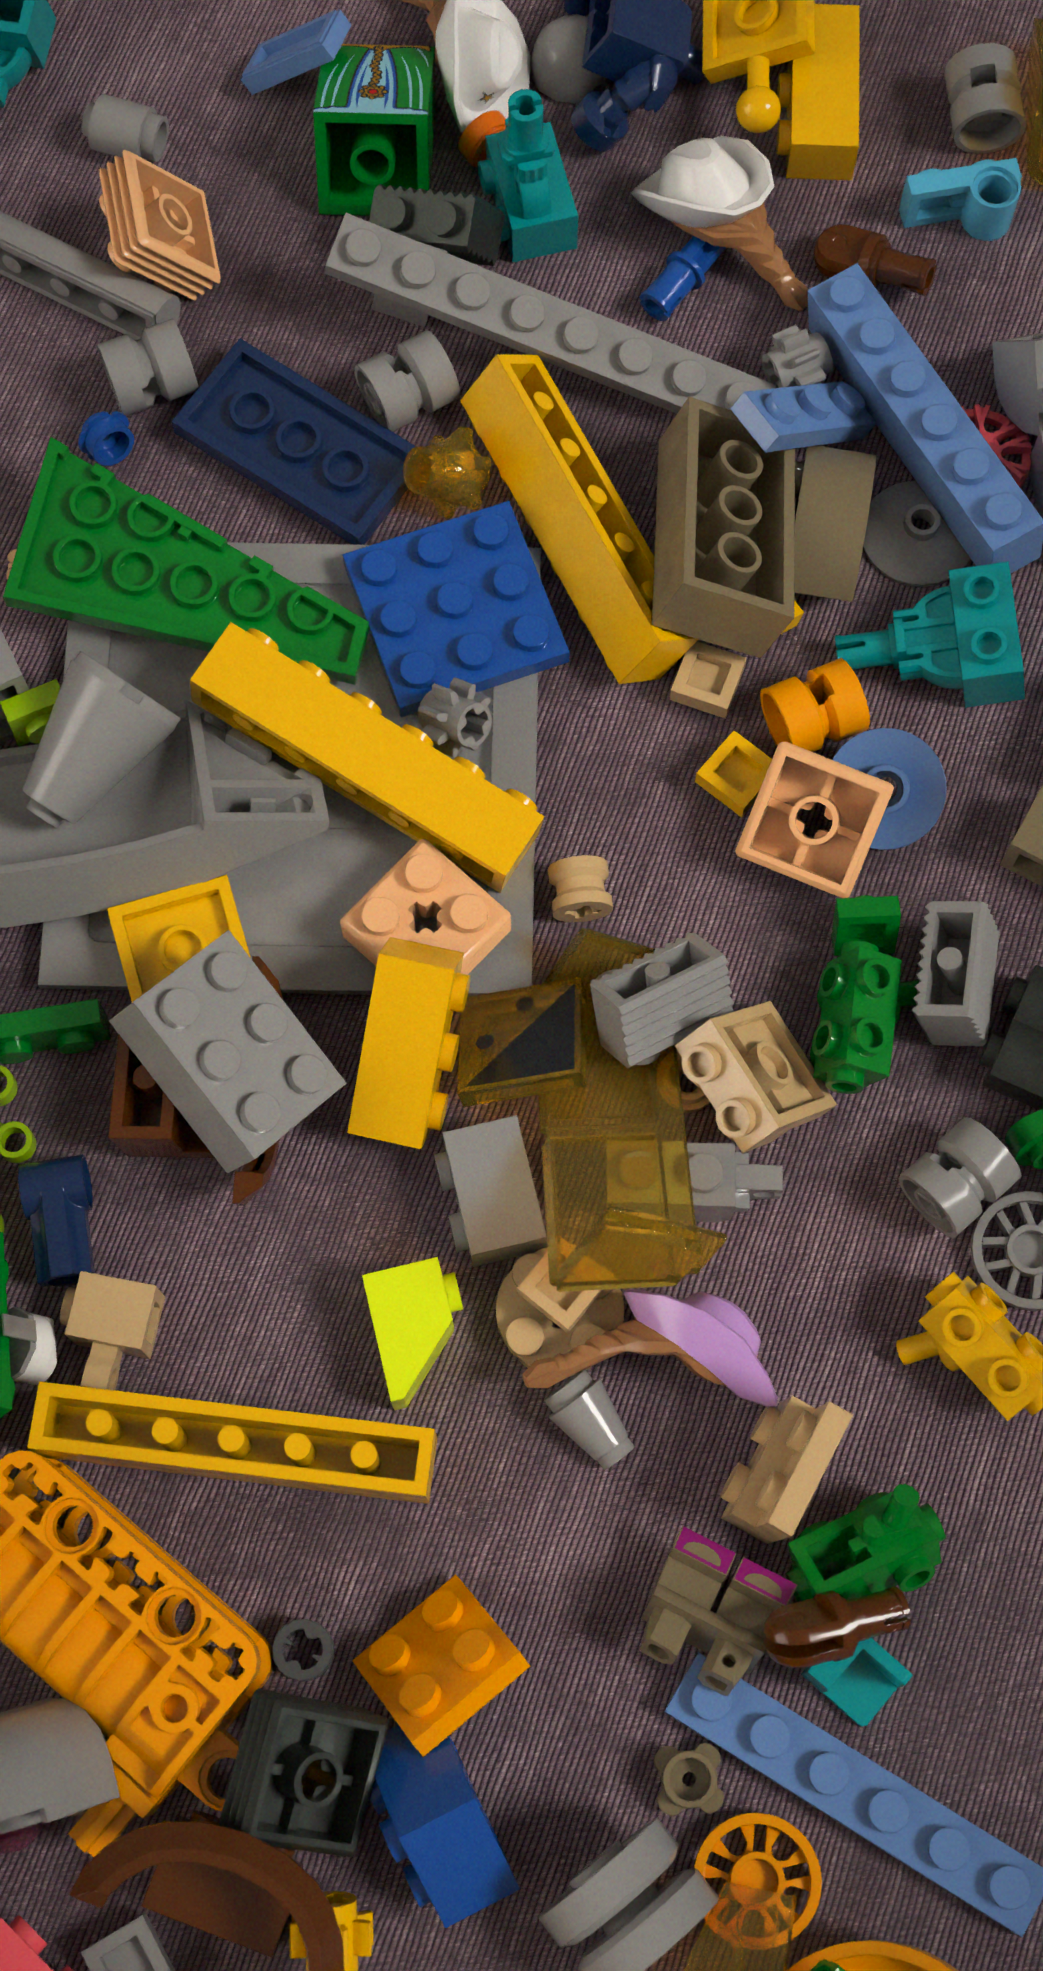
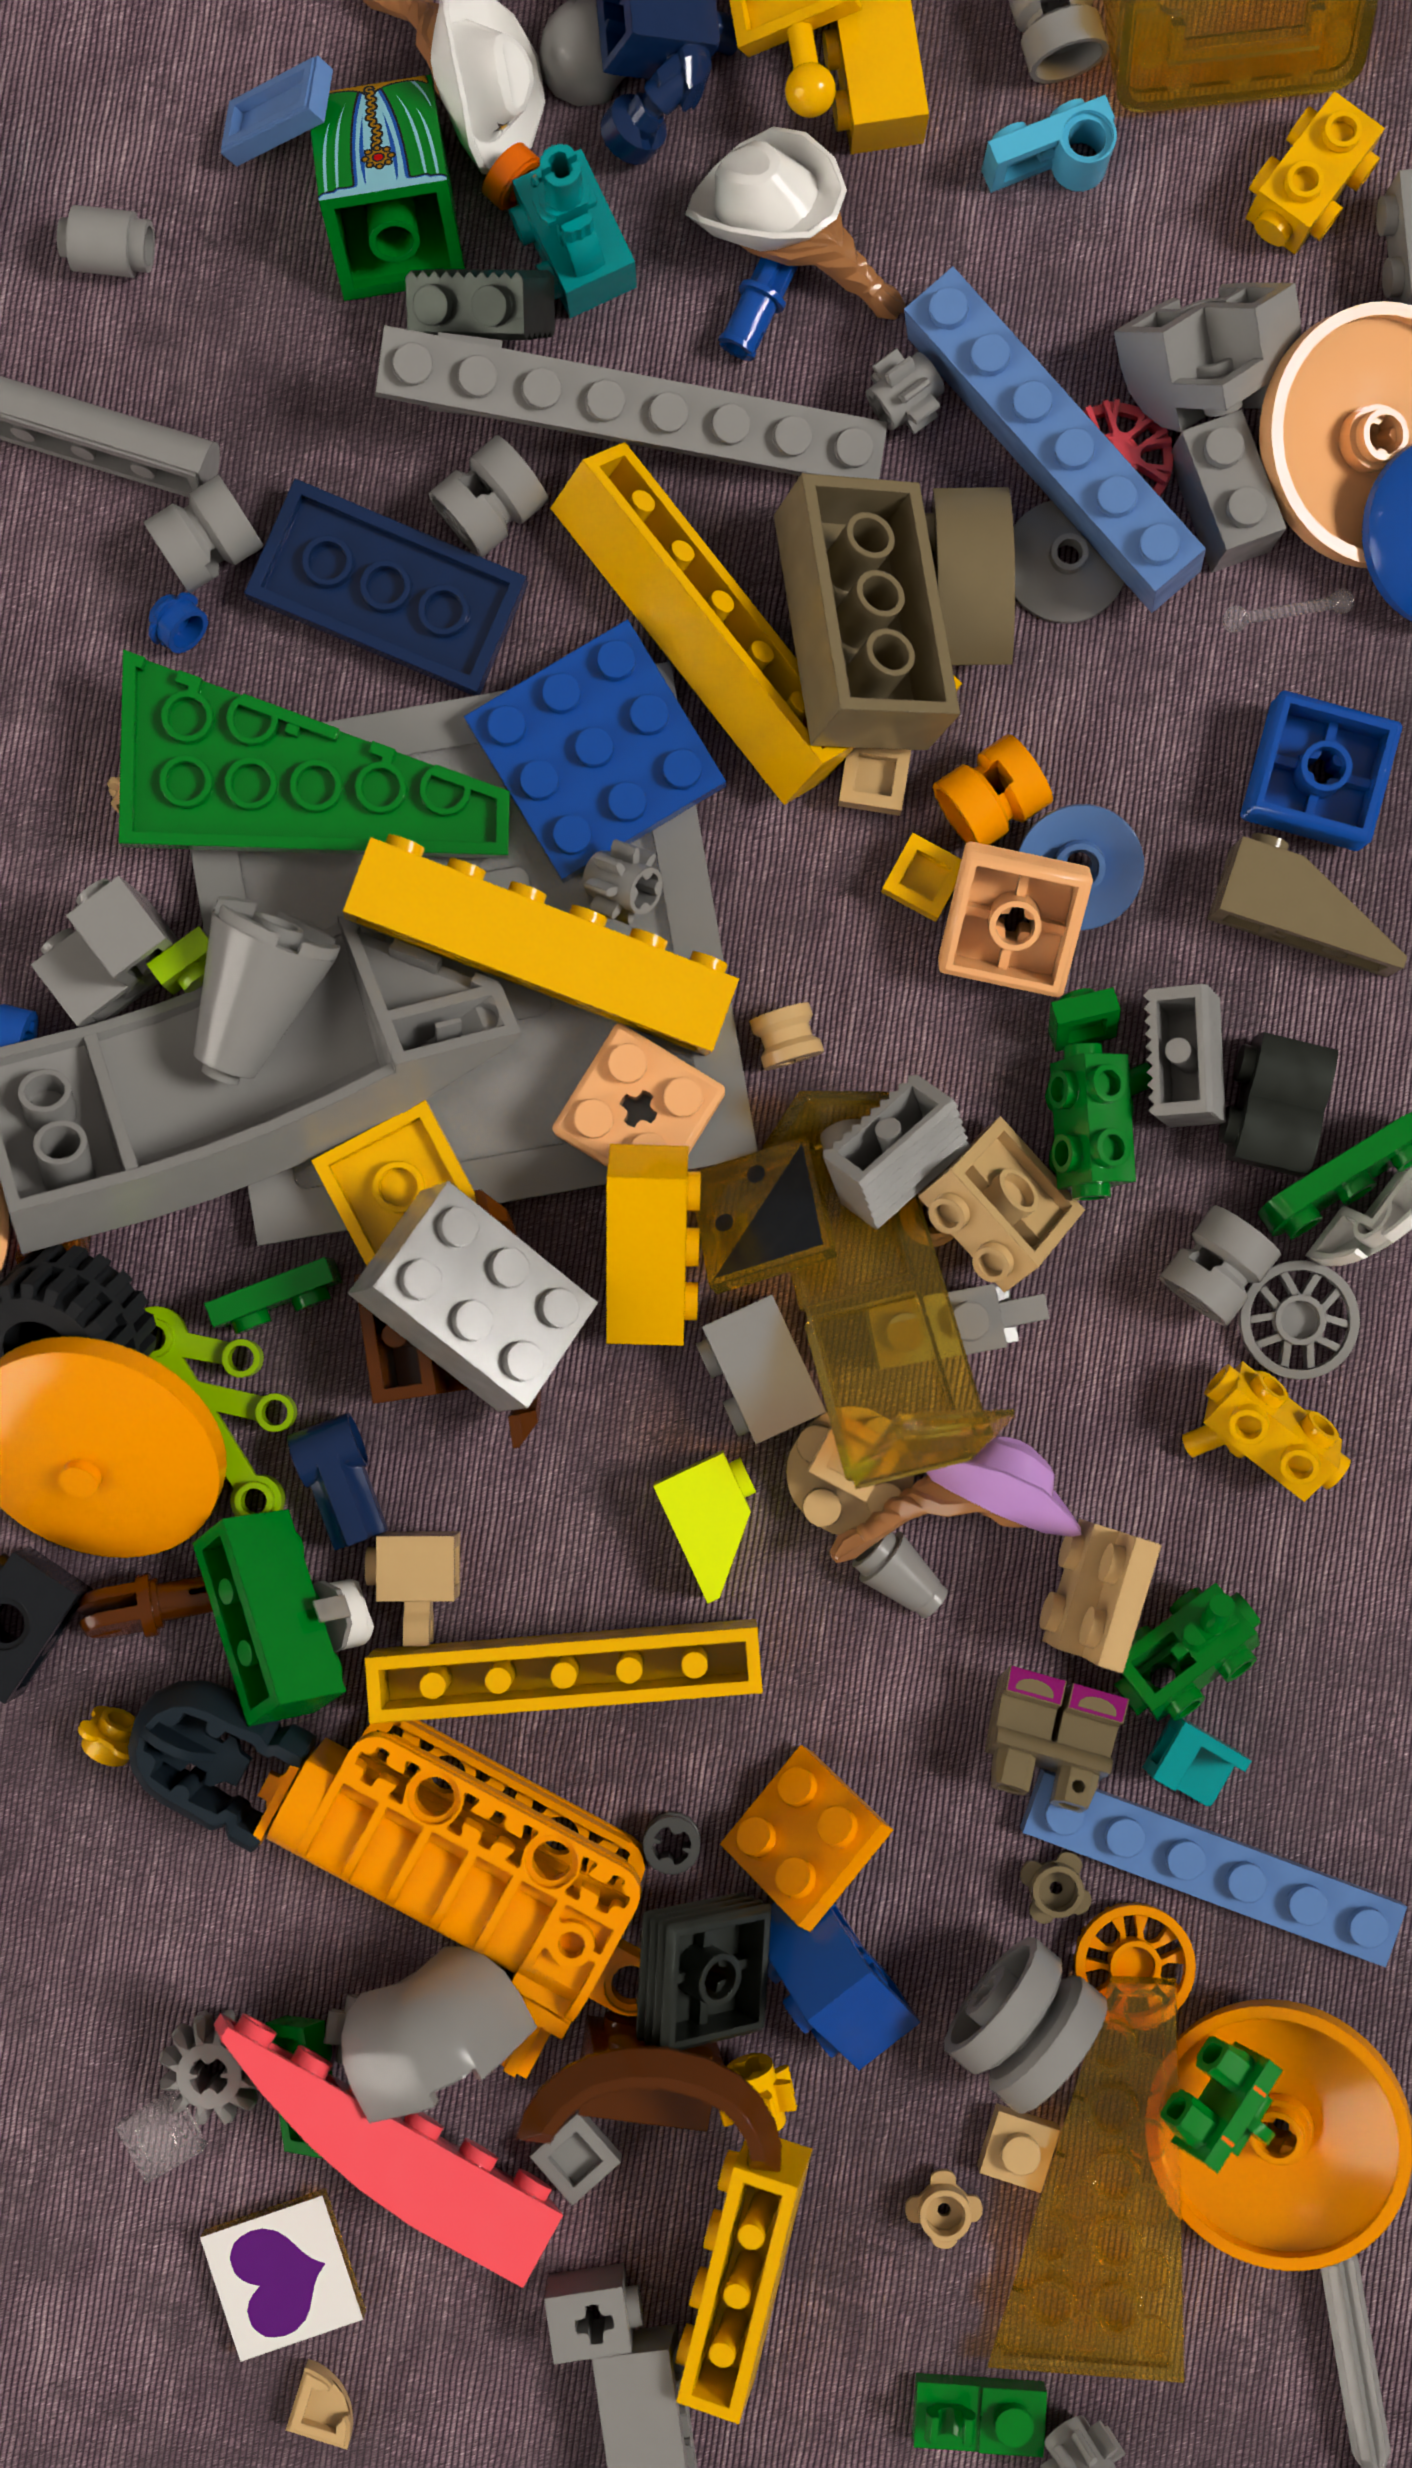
camera: 10 degrees left, 15 degrees up
(158, 226) = (175, 363): light nougat brick -> none
(448, 472) = (555, 595): clear yellow rock -> none
(803, 415) = (925, 461): medium blue plate -> none
(831, 1626) = (1170, 1738): reddish brown arm -> none
(847, 245) = (940, 239): reddish brown arm -> none
(952, 638) = (1128, 678): teal brick -> none

